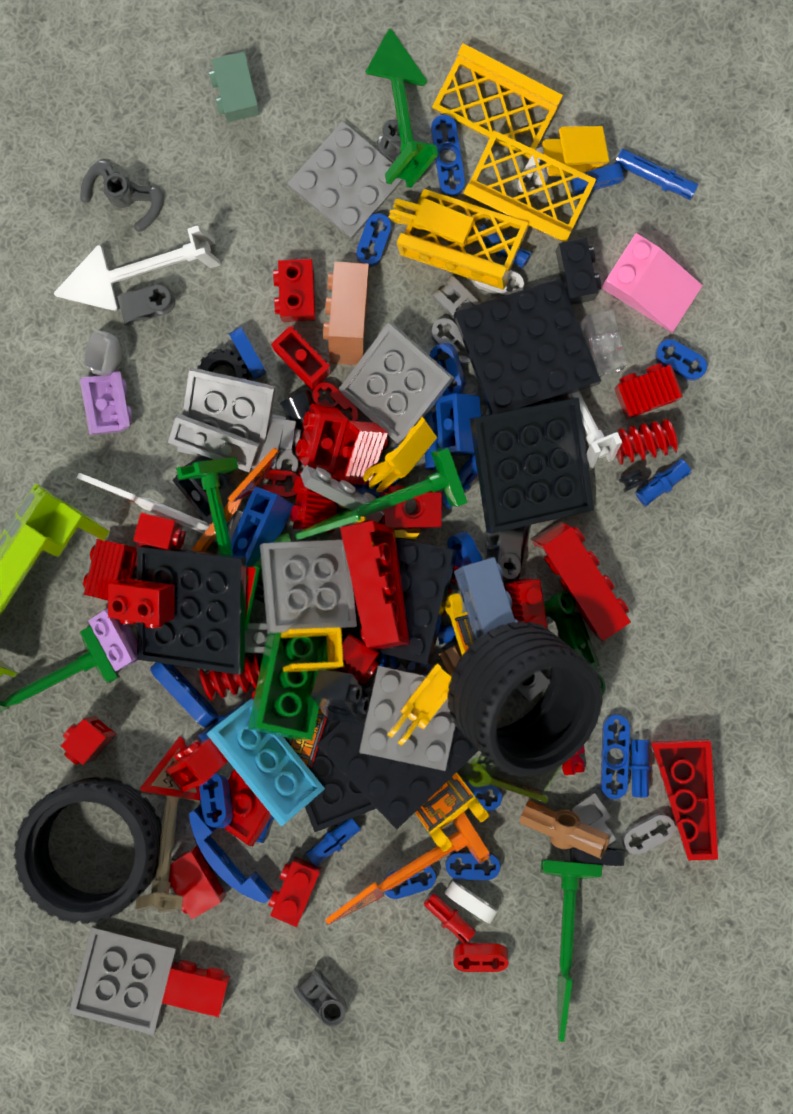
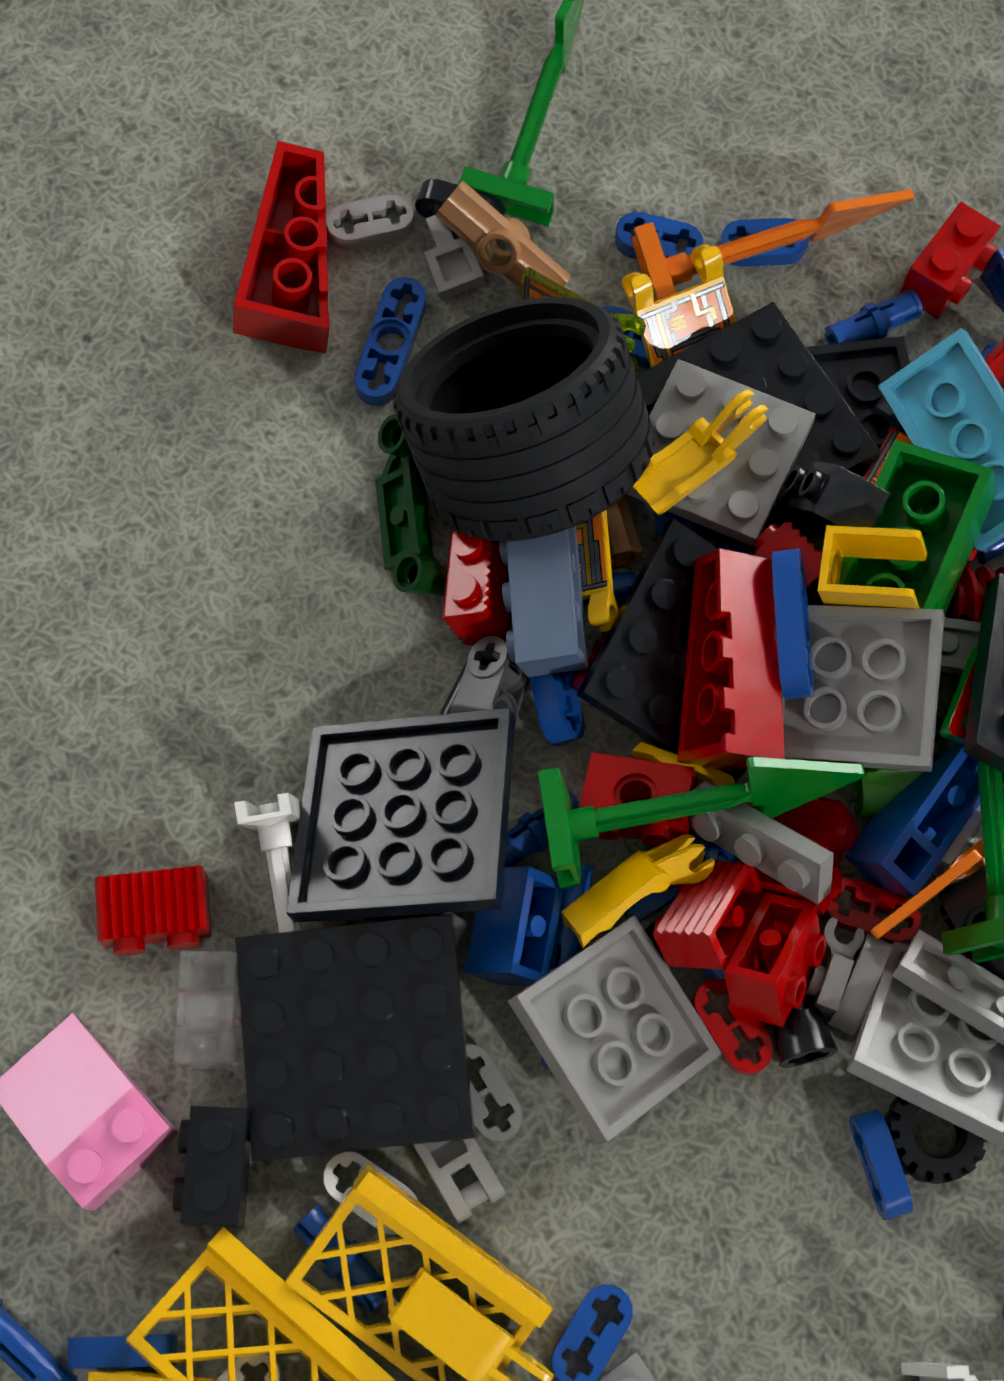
camera: 170 degrees left, 15 degrees down
(296, 290) = (767, 1266): red brick -> none
(301, 357) = (783, 1124): red brick -> none
(320, 997) = (932, 111): dark grey piece -> none
(347, 312) = (677, 1198): wedge -> none
(349, 610) = (792, 624): none -> blue beam
(449, 918) = (712, 176): red axle -> none
(453, 366) = (503, 1038): blue beam -> none
(471, 902) = (674, 188): white beam -> none
(480, 957) = (677, 113): red beam -> none
(582, 579) = (369, 614): red wedge -> none
(633, 480) = (228, 760): black bush -> none
(640, 768) = (355, 314): blue axle -> none
(646, 439) = (185, 820): red piece -> none
(663, 482) = (176, 745): blue pin -> none
(684, 354) = (84, 946): blue beam -> none

